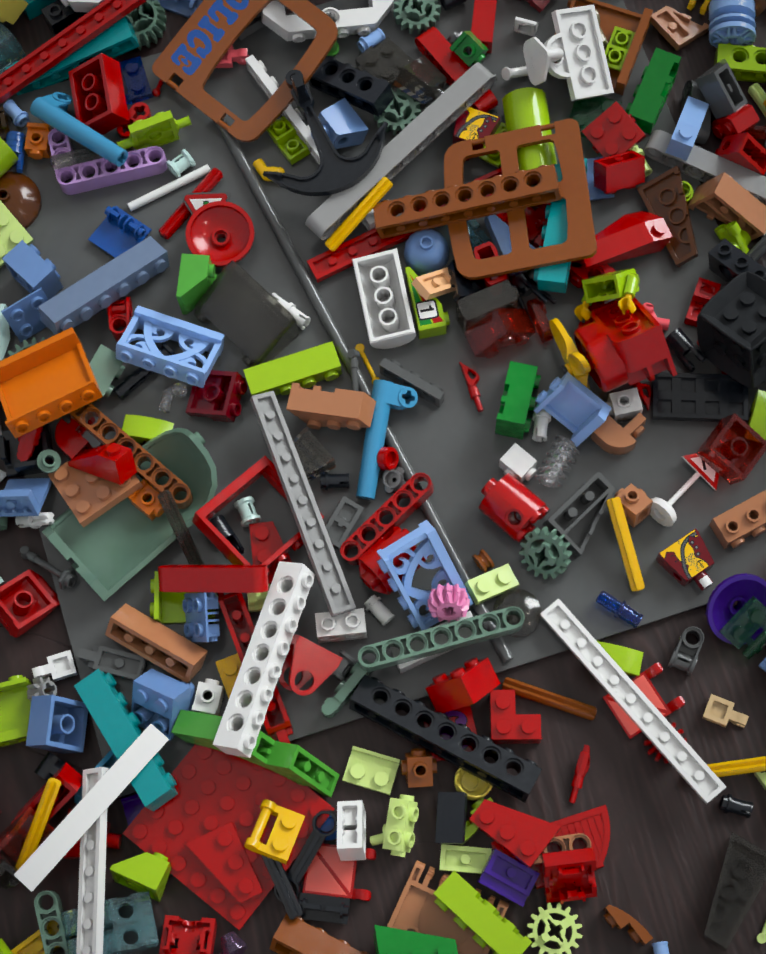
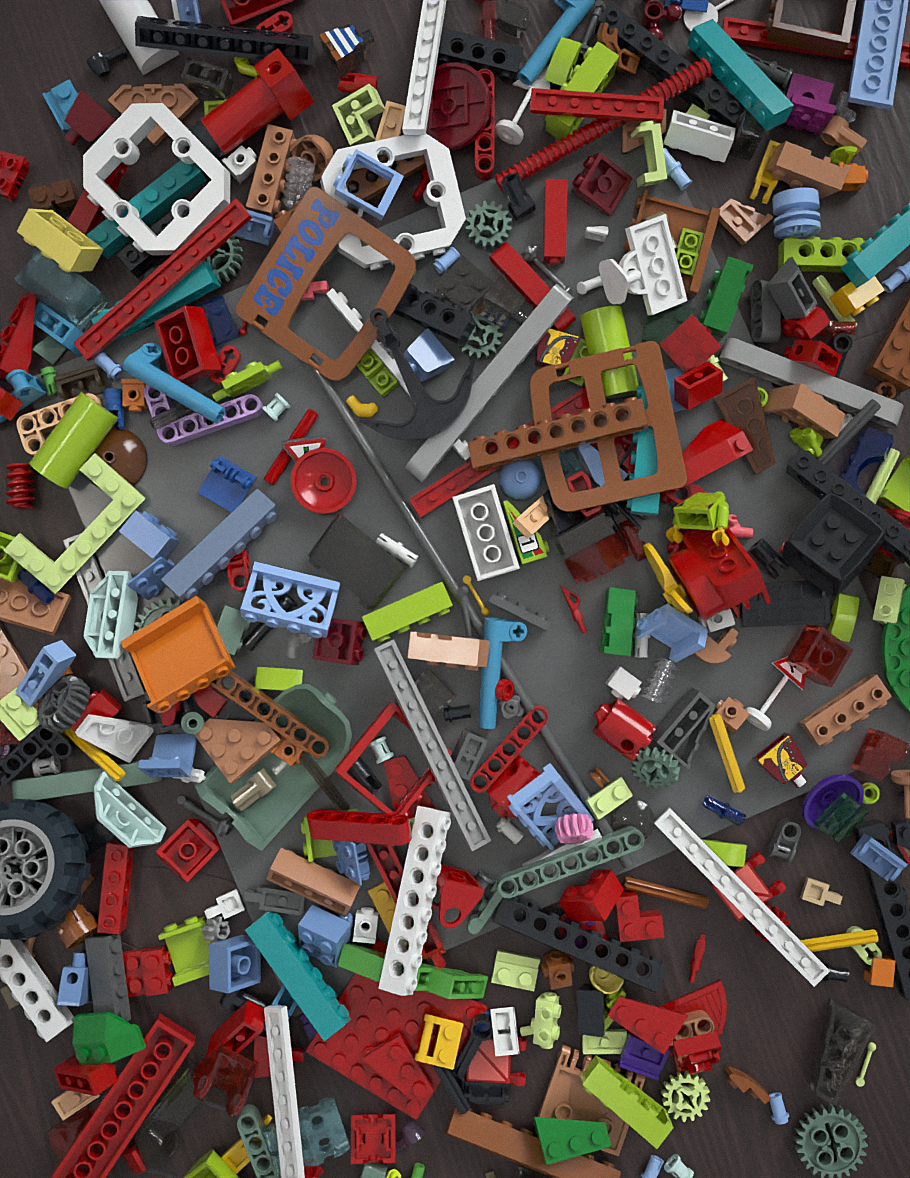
camera: 10 degrees left, 15 degrees up
(39, 821) = (231, 1062): yellow axle -> none
(90, 807) = (277, 1046): white sticker -> none
(107, 461) = (245, 725): red slope -> none
(110, 536) = (257, 787): none -> dark tan piece
(143, 873) = (328, 1087): lime slope -> none
(157, 193) = (267, 432): white bar -> none
(194, 279) = (305, 532): bright green slope -> none
(341, 627) = (485, 853): white brick -> none
(358, 214) = (454, 452): yellow axle -> none
(478, 52) = (548, 261): green brick -> none
(687, 128) = (762, 335): light blue slope -> none
(703, 293) = (781, 509): red slope -> none

